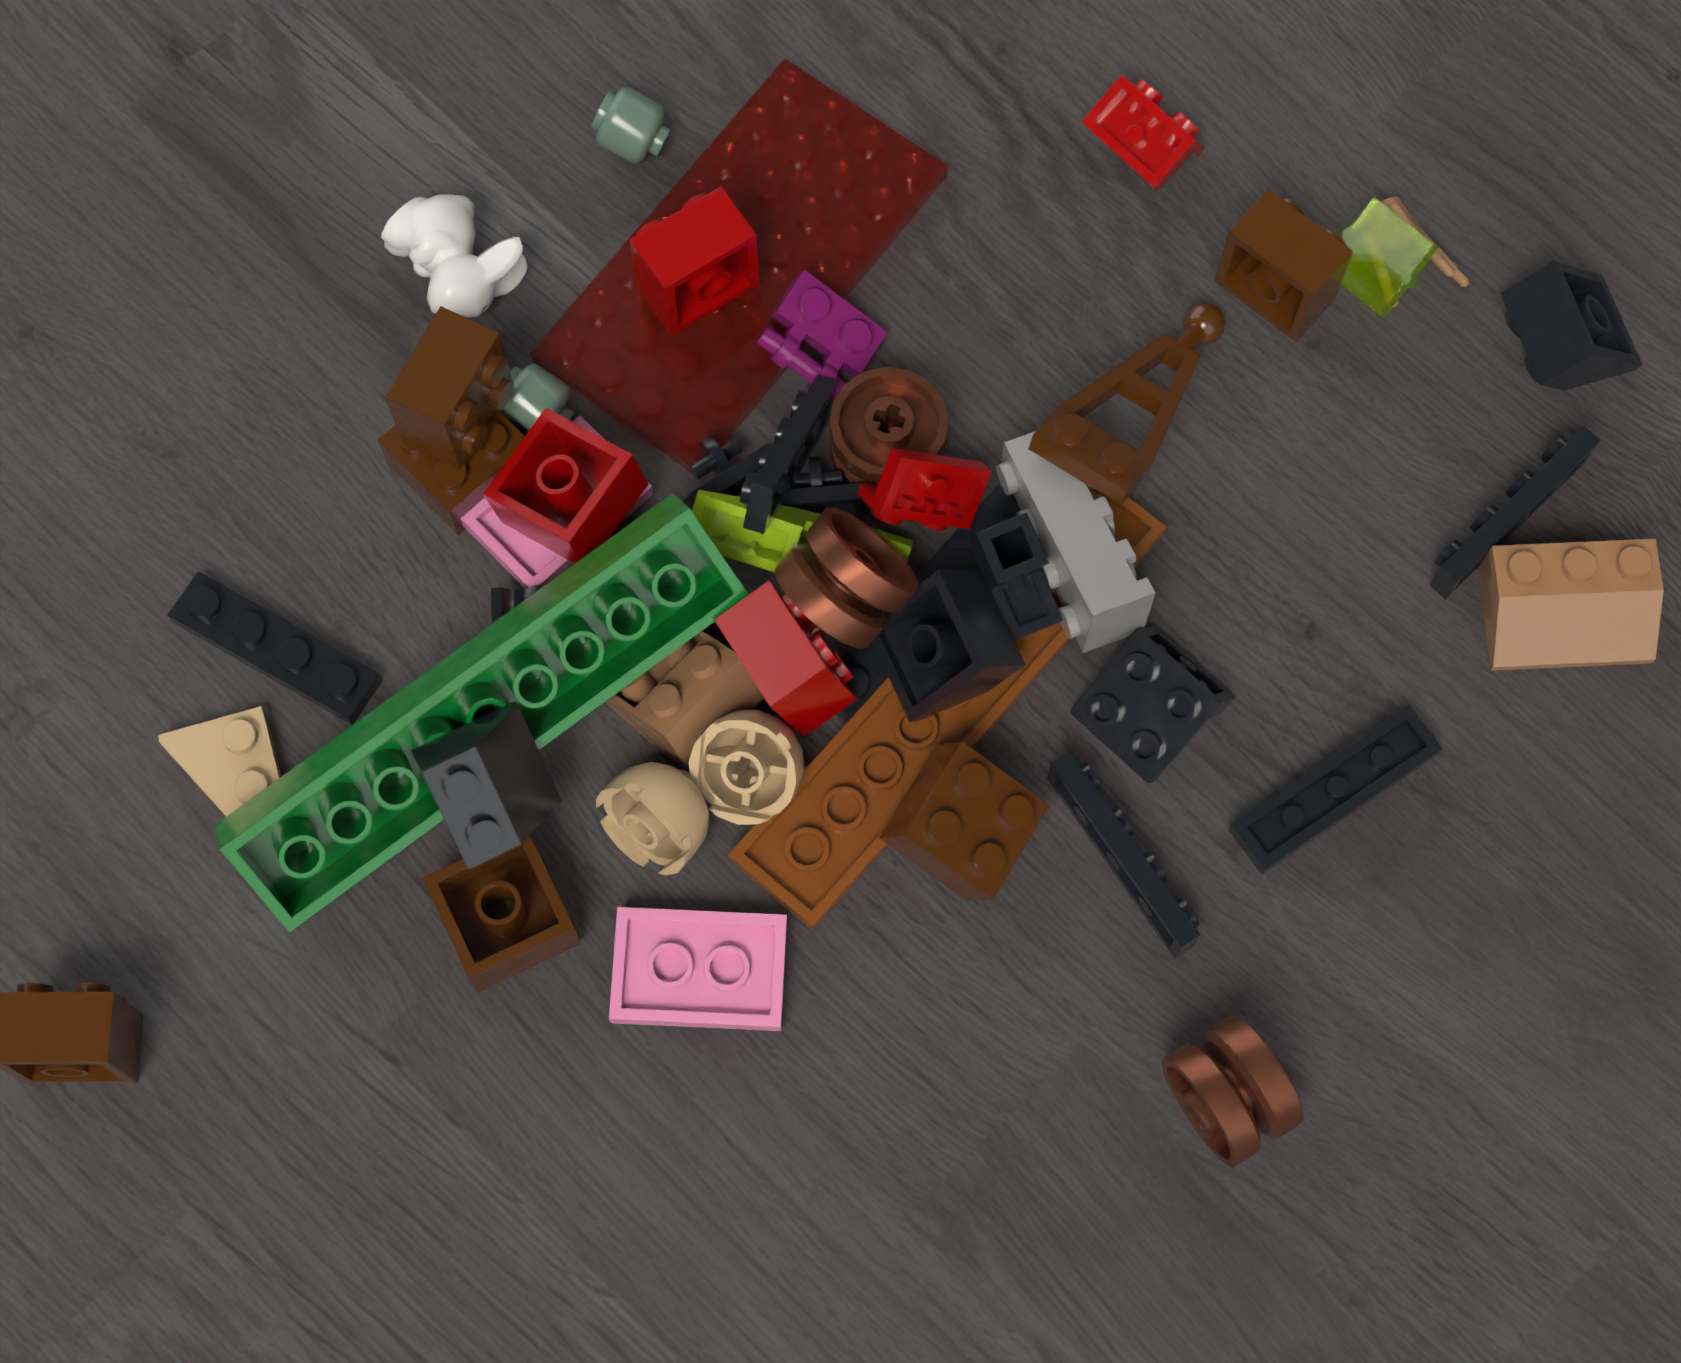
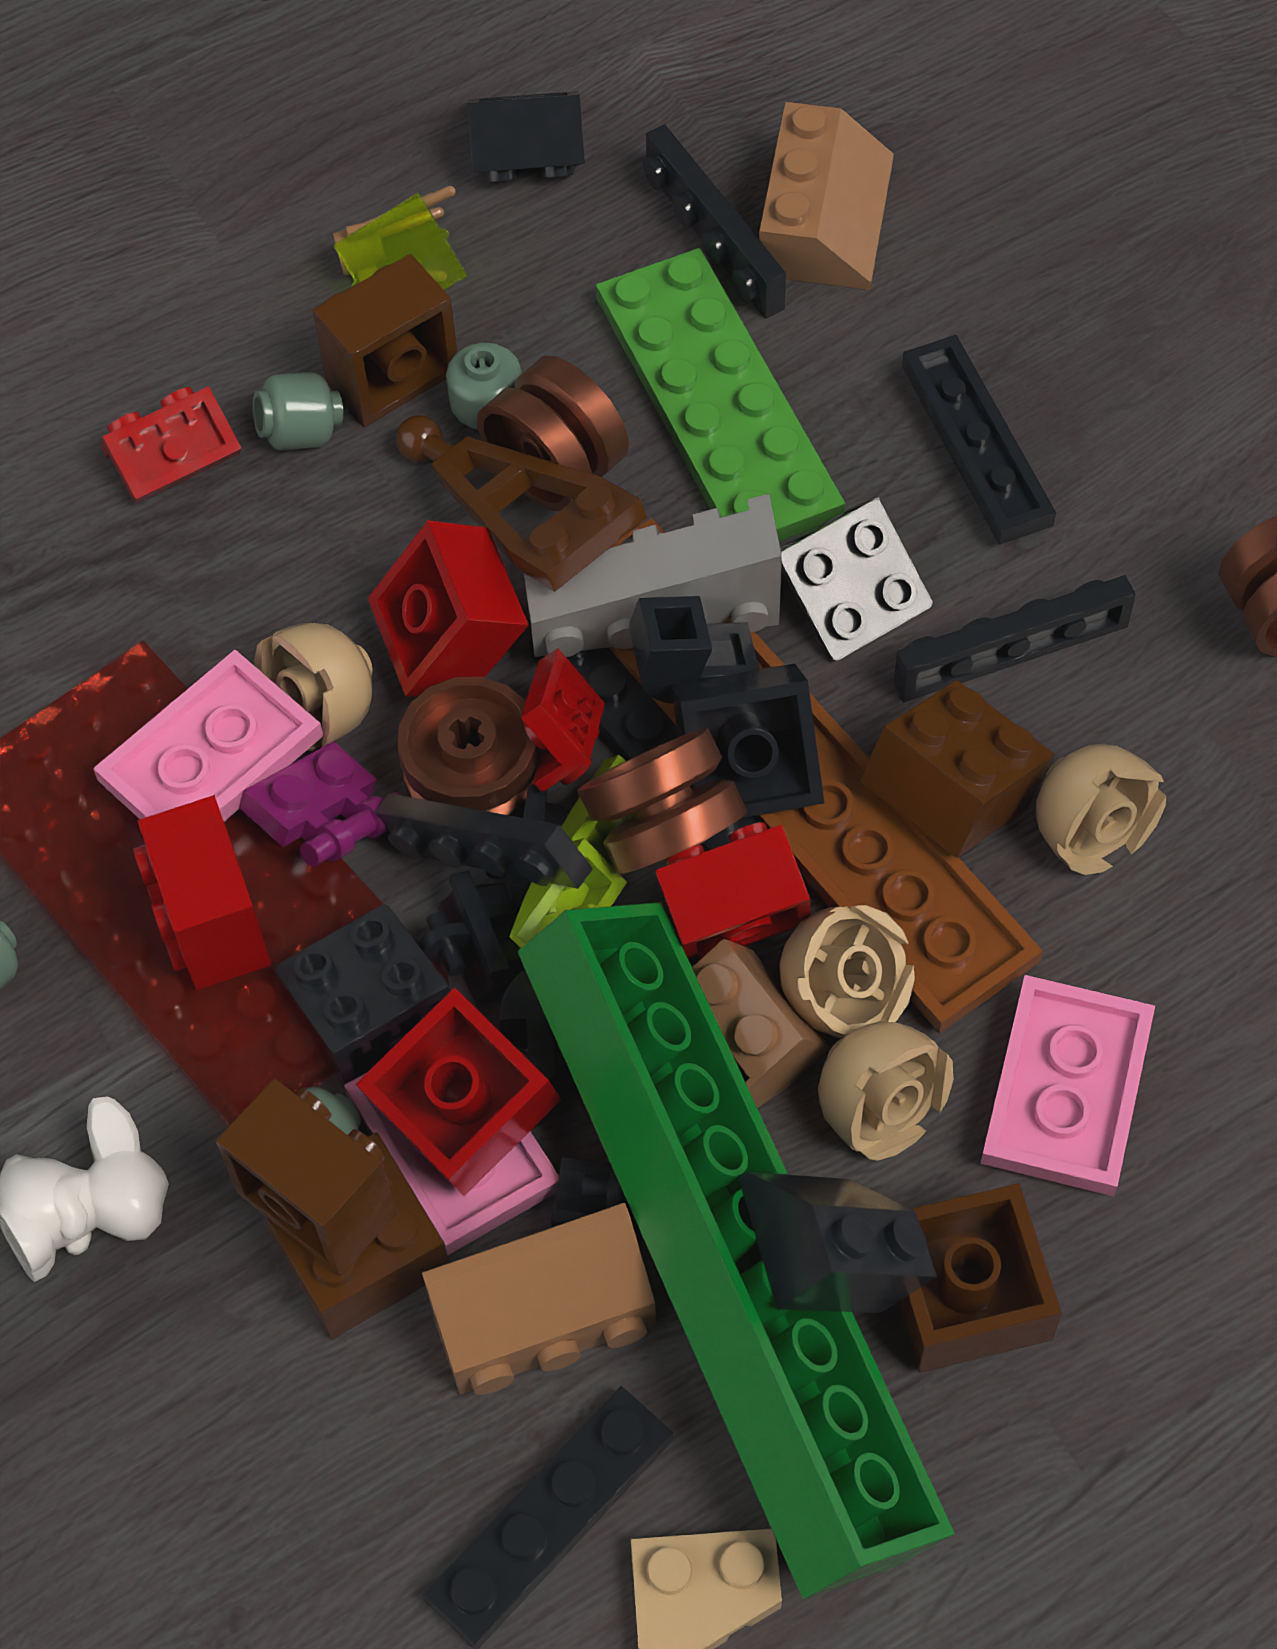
camera: 75 degrees left, 10 degrees down
(415, 585) = (541, 1300): none -> medium nougat slope
(658, 409) = (363, 989): none -> black bracket
(840, 236) = (210, 742): none -> bright pink plate
(933, 304) = (320, 673): none -> tan cylinder
(962, 945) = (1097, 804): none -> tan cylinder
(1013, 380) = (447, 607): none -> red brick
(1200, 218) = (296, 411): none -> sand green head
(1224, 424) = (558, 418): none -> copper wheel
(1266, 359) = (478, 376): none -> sand green head
(1320, 560) = (717, 393): none -> bright green plate

